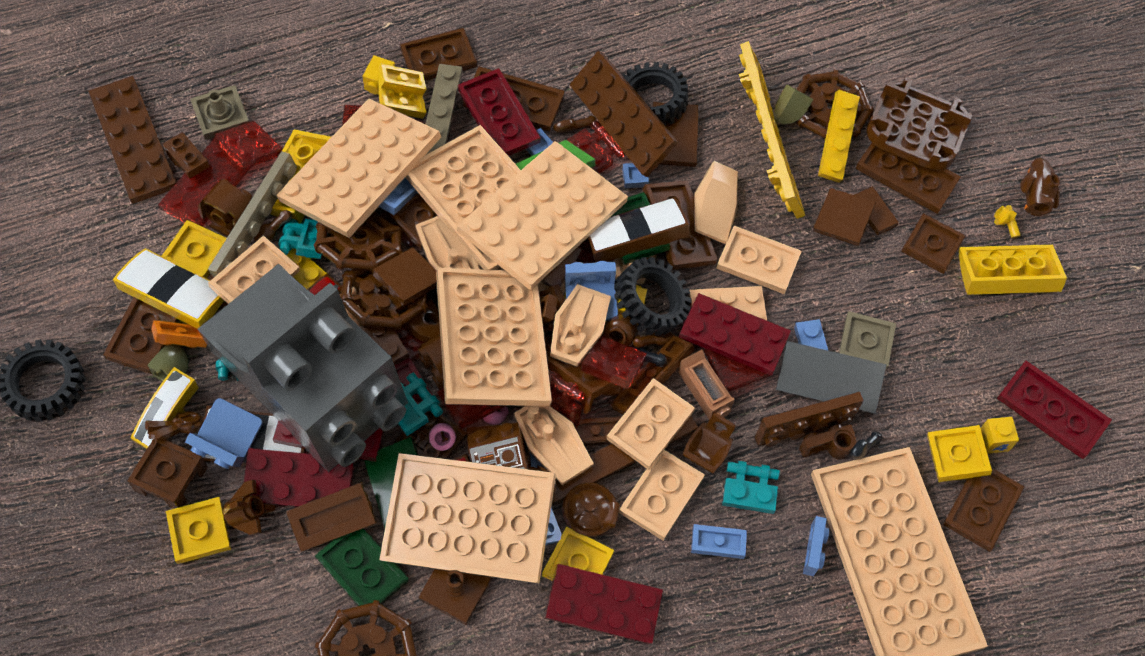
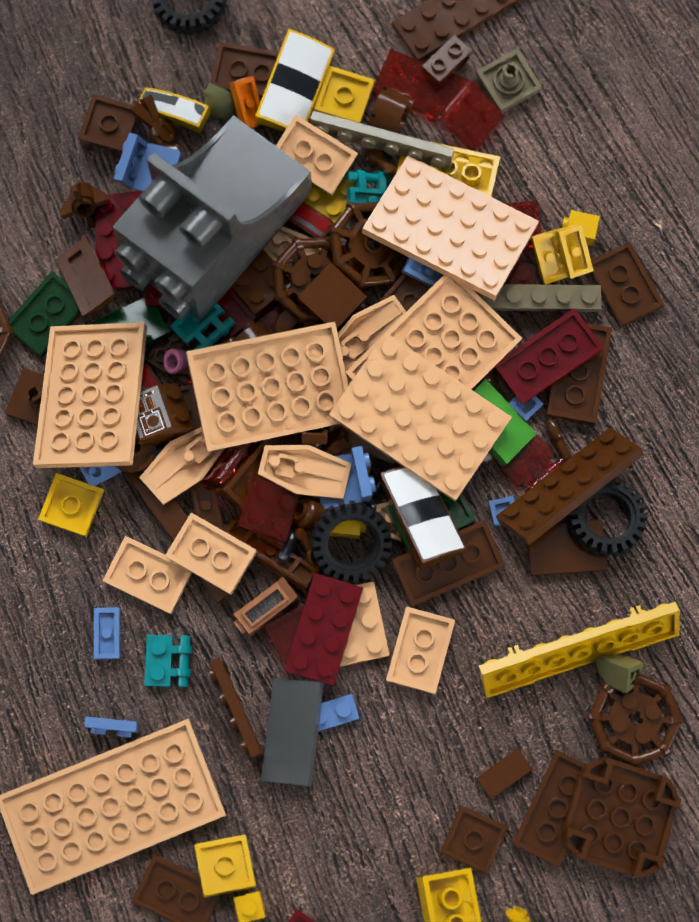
camera: 90 degrees right, 15 degrees up
(198, 530) = (62, 166): yellow plate -> none
(590, 509) = (122, 508): reddish brown piece -> none
(603, 604) = (32, 532): dark red plate -> none
(709, 445) = (199, 614): reddish brown piece -> none
(716, 202) = (480, 599): light nougat piece -> none
(816, 442) = (219, 721): reddish brown plate -> none
(838, 136) = (588, 726): yellow plate -> none
(844, 216) = (485, 737): reddish brown tile -> none
(863, 446) = (218, 767): black piece -> none
(867, 338) = (344, 770): dark tan tile -> none

